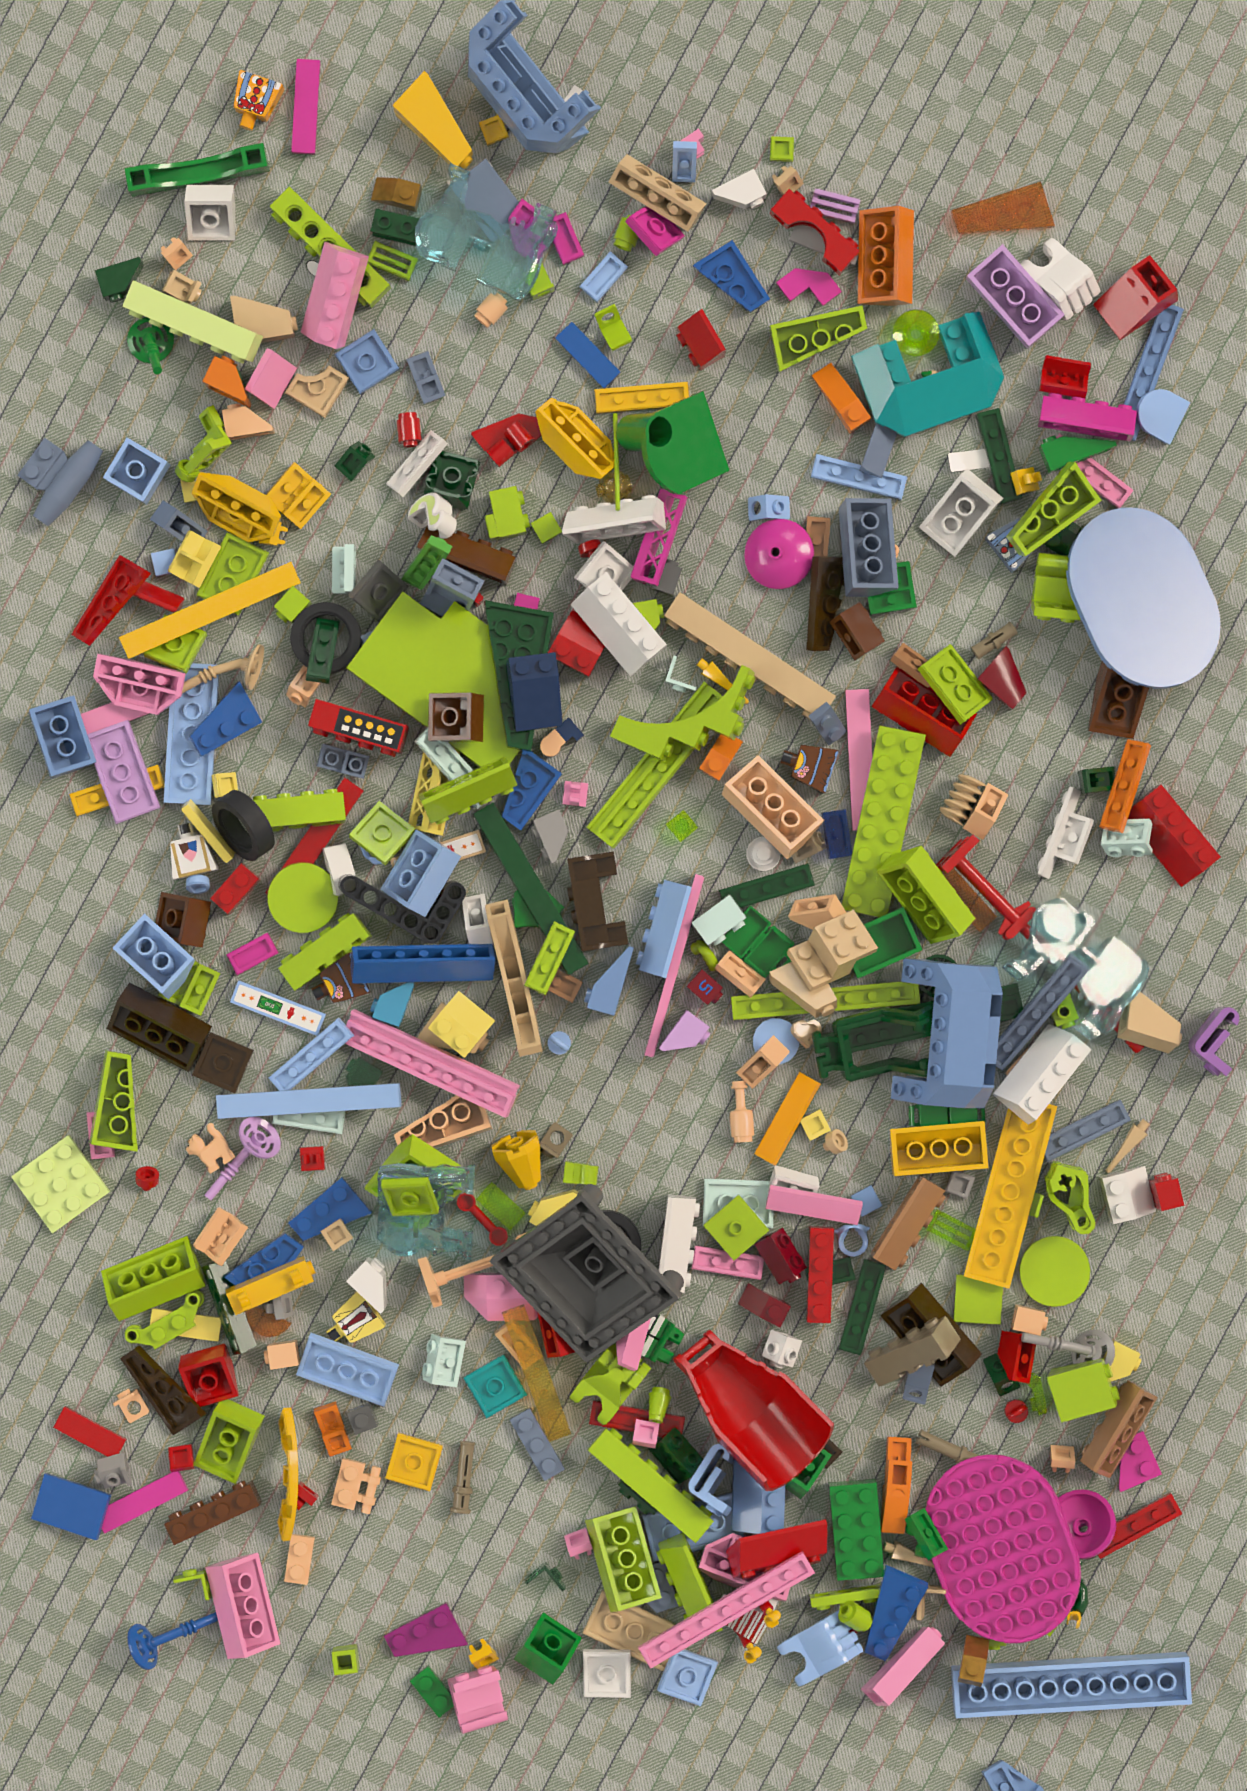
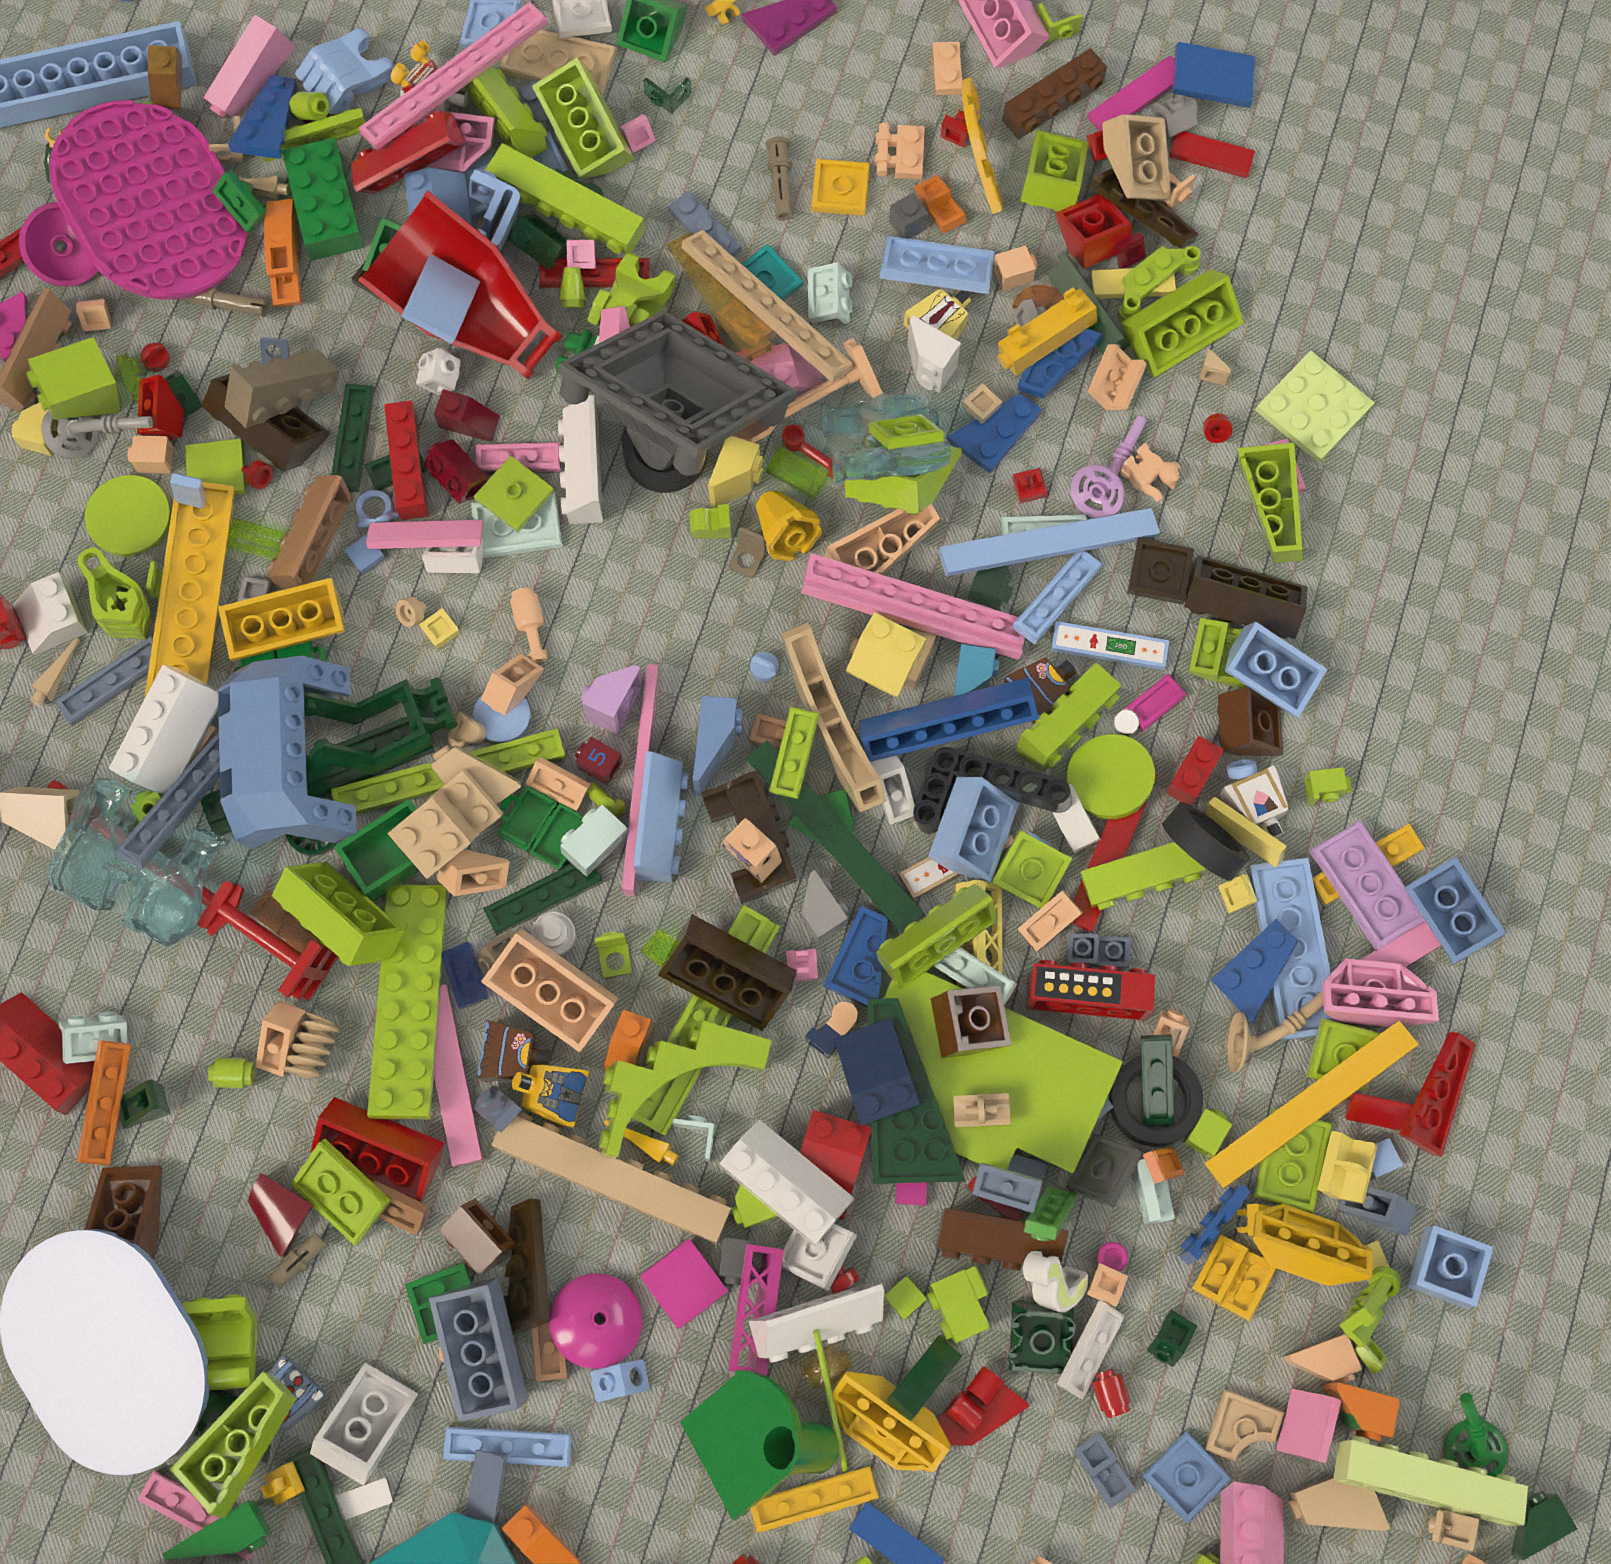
camera: 165 degrees right, 15 degrees down
(58, 476) = (1546, 1243): sand blue plate -> none
(133, 857) = (1326, 785): none -> lime brick
(135, 1231) = (1214, 369): none -> tan slope
(156, 1433) = (1139, 155): none -> tan slope
(181, 1351) = (1130, 250): none -> dark red tile
(279, 941) = (1126, 722): none -> white sticker
(311, 529) = (1231, 1201): none -> blue wing
(332, 585) = (1164, 1164): none -> orange tile
(376, 790) = (1050, 920): none -> light nougat plate
(385, 527) = (1113, 1256): none -> dark pink tile
(394, 506) = (1107, 1285): none -> light nougat tile
(461, 648) = (982, 1110): none -> tan hips
(499, 1353) = (767, 306): none -> tan tile
(544, 465) = (924, 1378): none -> dark green tile
(598, 884) = (751, 849): none -> light nougat torso
(633, 794) = (728, 972): none -> dark brown slope
(709, 569) = (683, 1283): none -> dark pink slope
(719, 838) = (612, 943): none -> lime bracket
(769, 1405) = (440, 299): none -> light blue tile
(783, 728) = (552, 1092): none -> torso
(787, 1118) = (473, 628): light orange tile -> none
(943, 1286) = (258, 474): none -> red tile
(998, 1268) = (188, 490): none -> light blue tile
(1026, 791) = (231, 1073): none -> lime brick
(1068, 835) = (169, 1026): white bracket -> none

